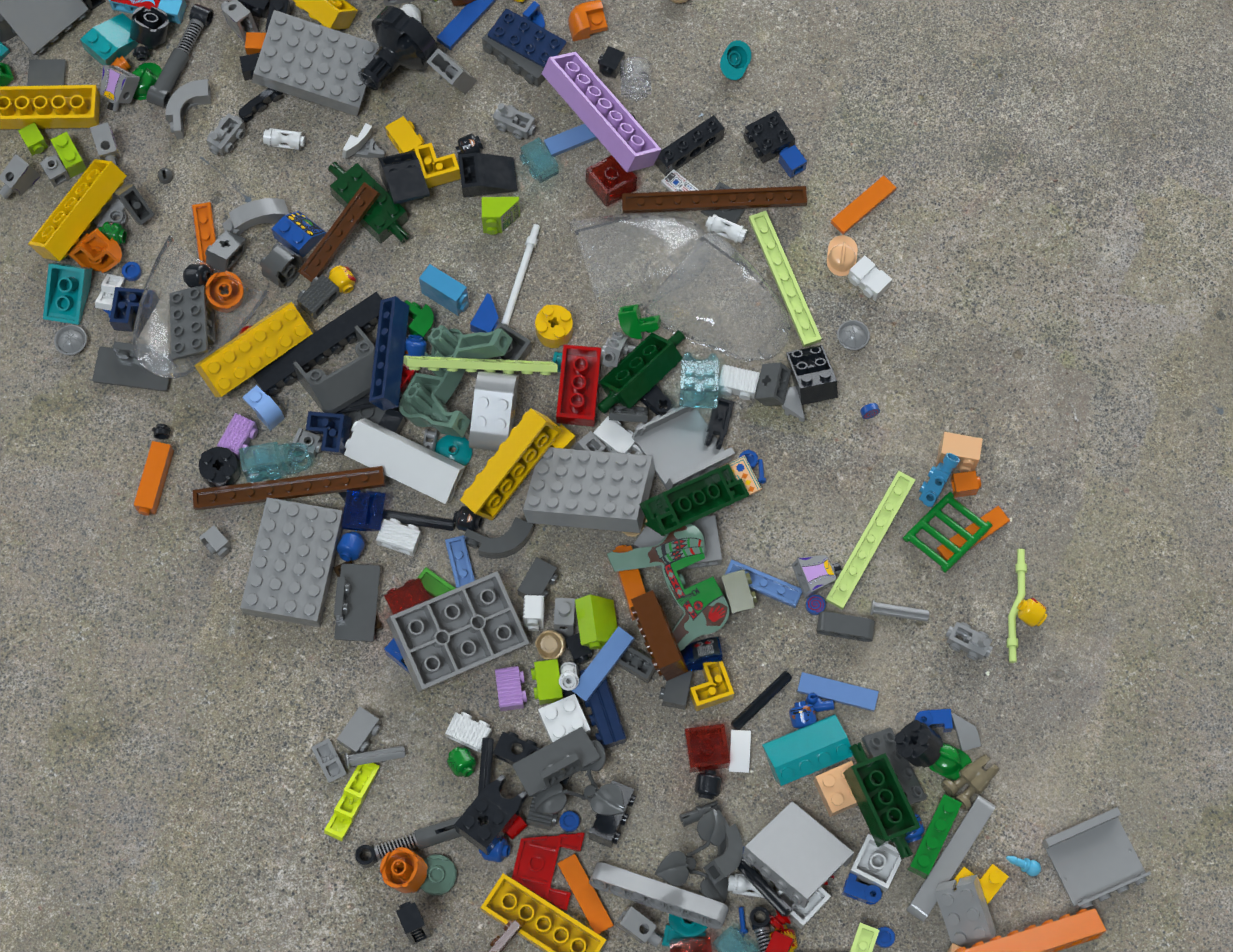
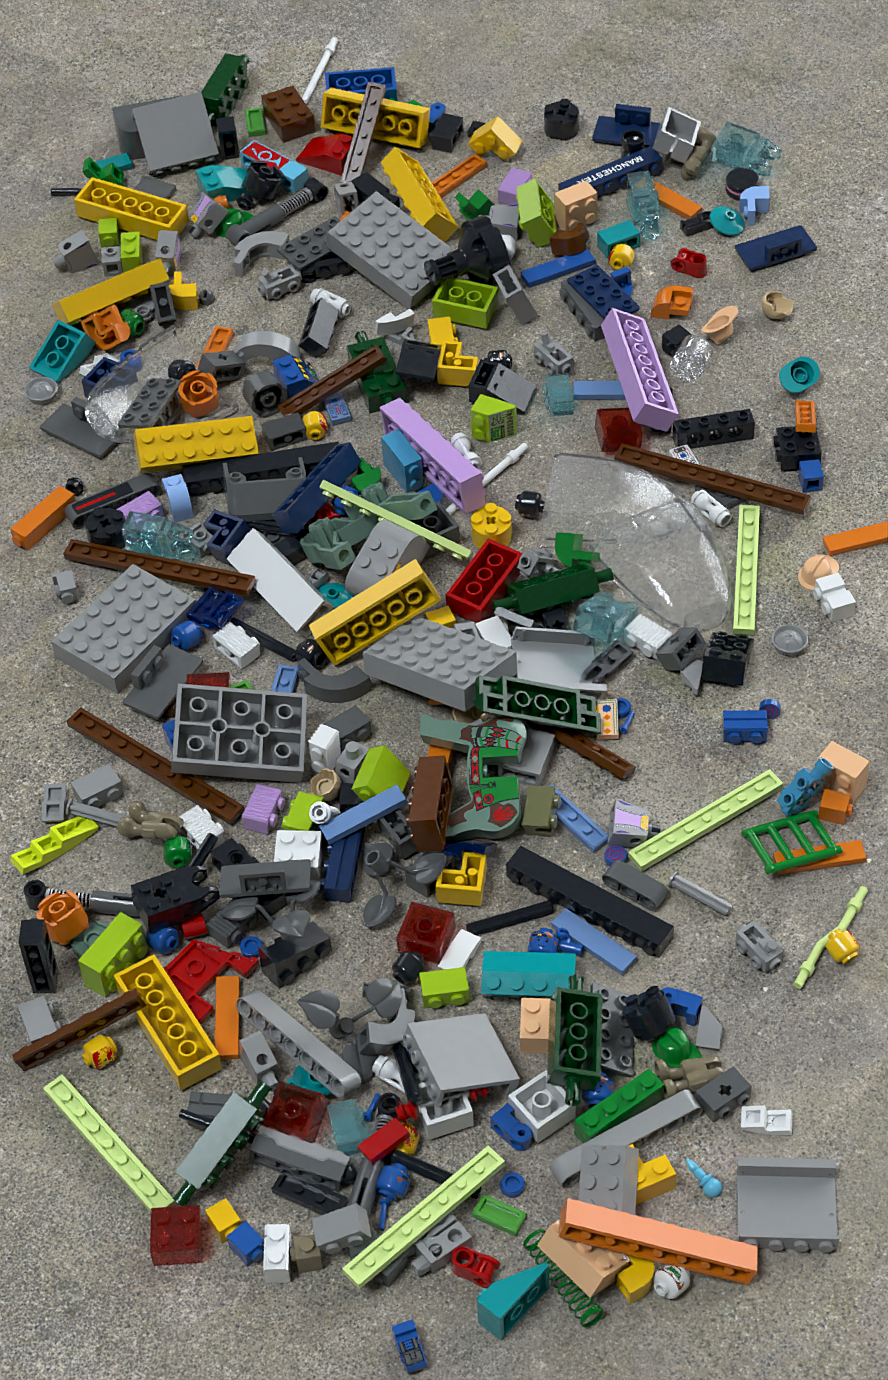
camera: 30 degrees right, 20 degrees down
(145, 183) = (183, 295): none -> yellow brick
(205, 433) = (111, 498): none -> dark grey beam
(236, 84) = (309, 246): none -> dark grey bracket
(290, 172) = (319, 328): none -> brick
(352, 254) = (337, 409): none -> medium blue tile
(393, 686) = (155, 766): none -> reddish brown plate
(408, 93) = (466, 302): none -> lime brick
(432, 747) = (149, 825): none -> dark tan piece
(467, 886) = (112, 952): none -> lime brick
(481, 281) = (440, 460): none -> lavender brick
(483, 249) = (462, 443): none -> white piece
(573, 287) = (529, 504): none -> black head
(628, 693) = (377, 862): none -> dark grey plant
(641, 28) = (721, 324): none -> light nougat piece
(745, 789) = (444, 987): none -> lime brick
(755, 515) = (588, 748): none -> reddish brown plate
(762, 104) = (805, 416): none -> orange tile
(817, 658) = (590, 901): none -> black brick
(858, 437) = (744, 726): none -> blue brick
(997, 794) = (724, 1094): none -> dark grey brick
(1045, 792) = (764, 1121): none -> white slope

